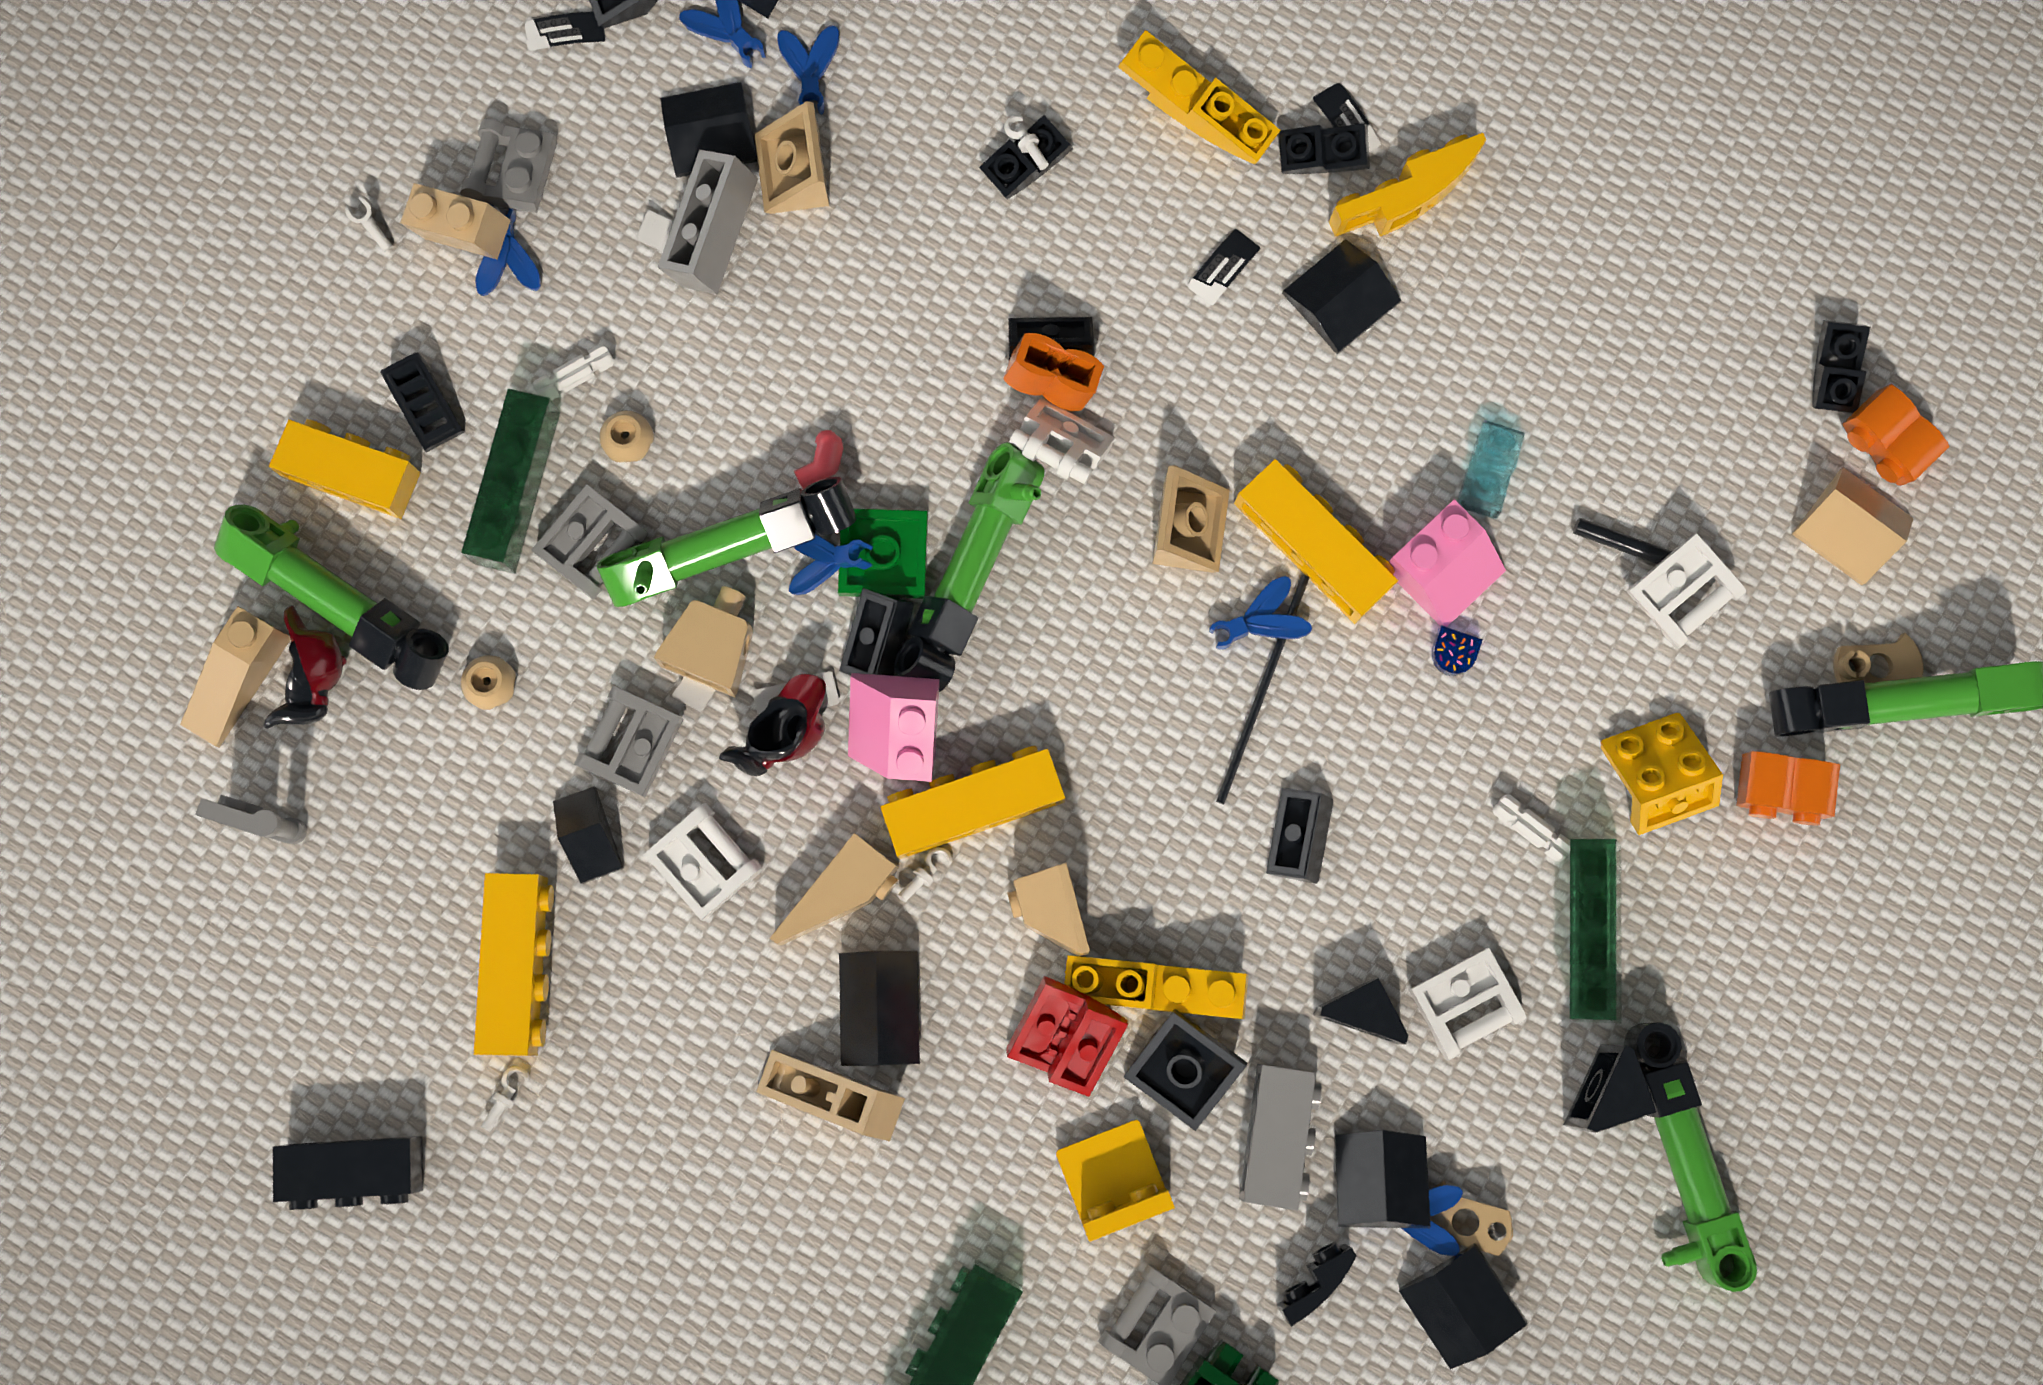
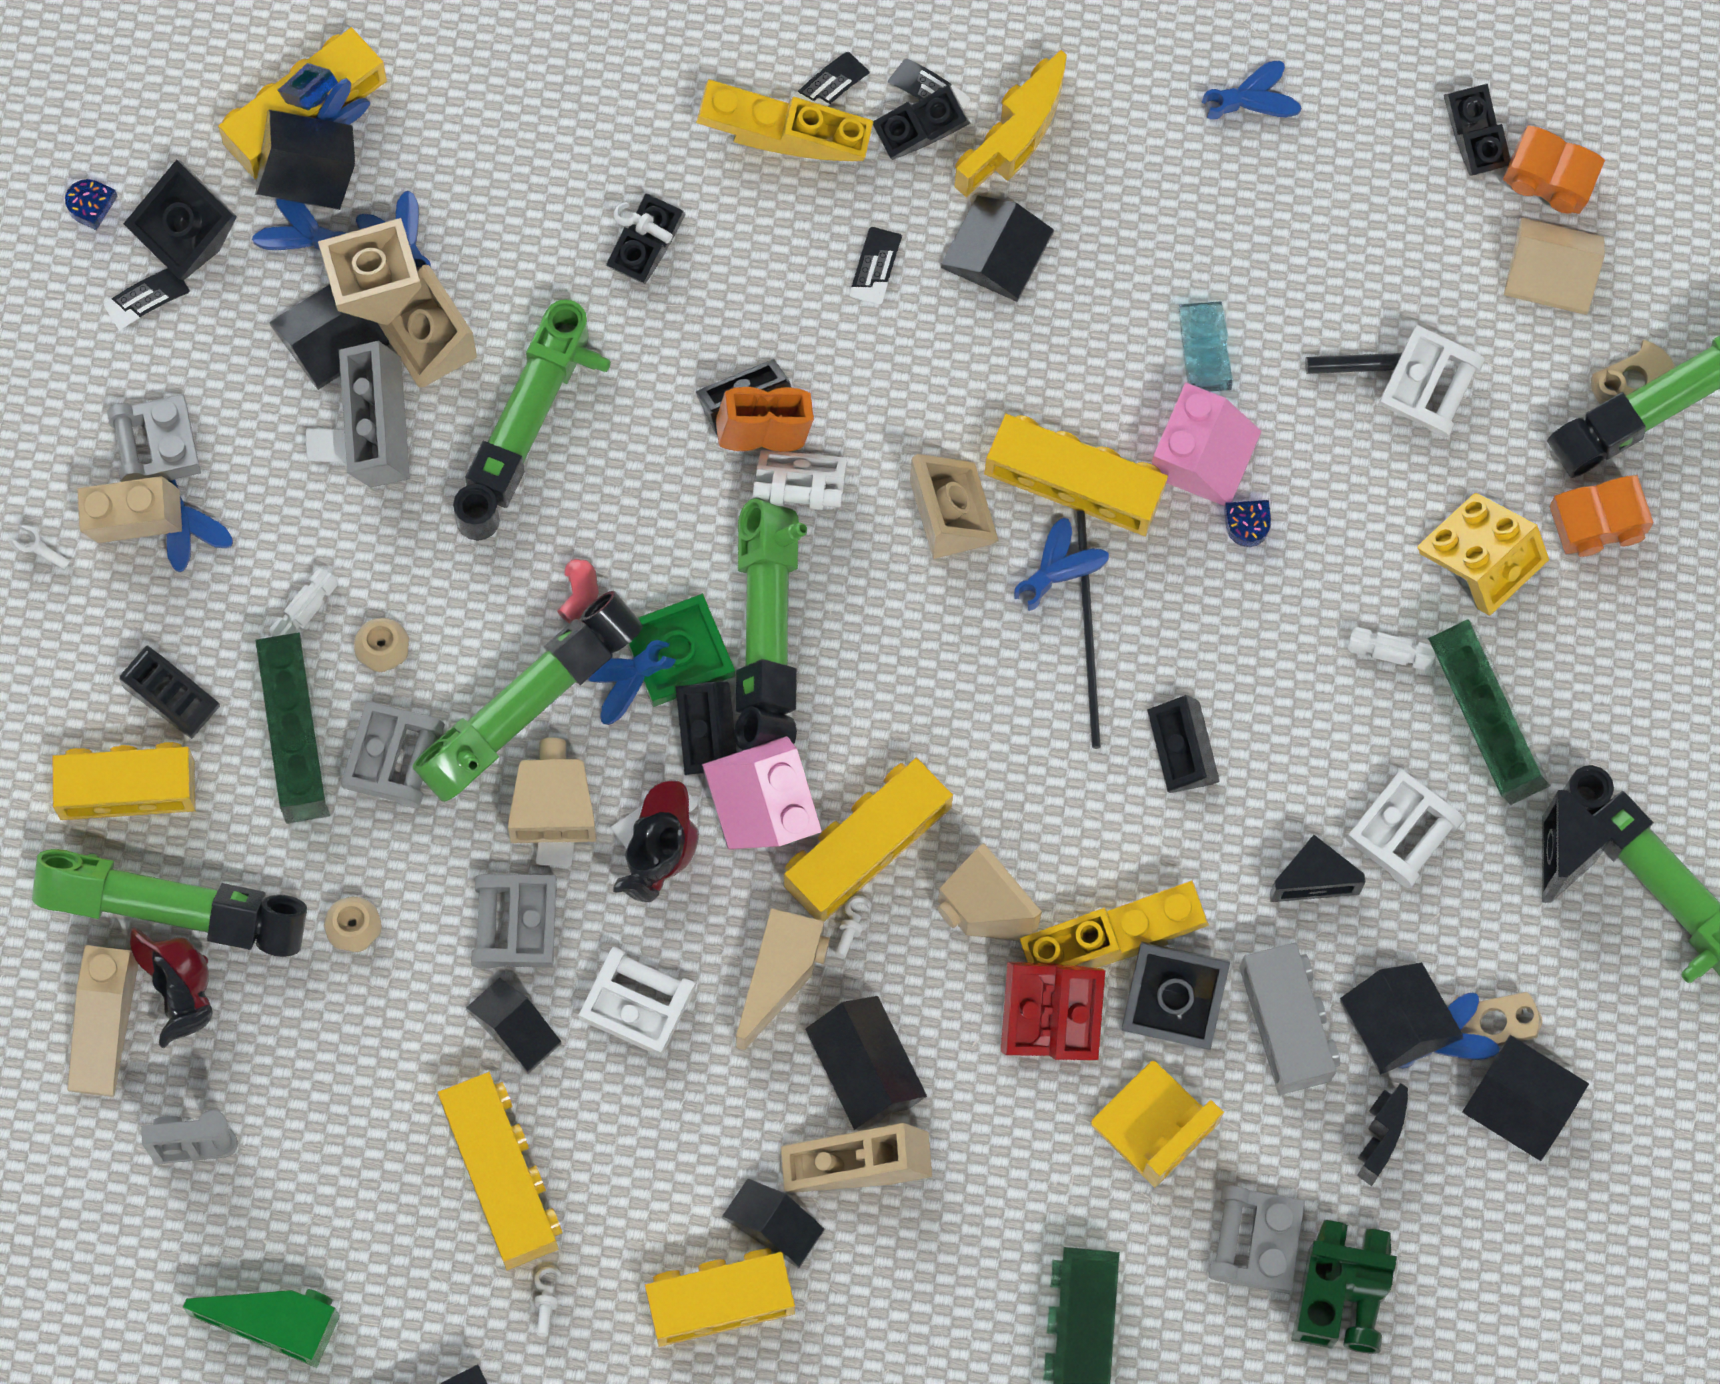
camera: 25 degrees left, 10 degrees down
(265, 1020) = (277, 1320): none -> green slope
(652, 1166) = (719, 1297): none -> yellow brick
(733, 1117) = (774, 1221): none -> black slope
(760, 87) = (371, 271): none -> tan slope
(800, 314) = (501, 460): none -> bright green piece
(1262, 77) = (833, 80): none -> black sticker
(1645, 248) = (1254, 95): none -> blue piece

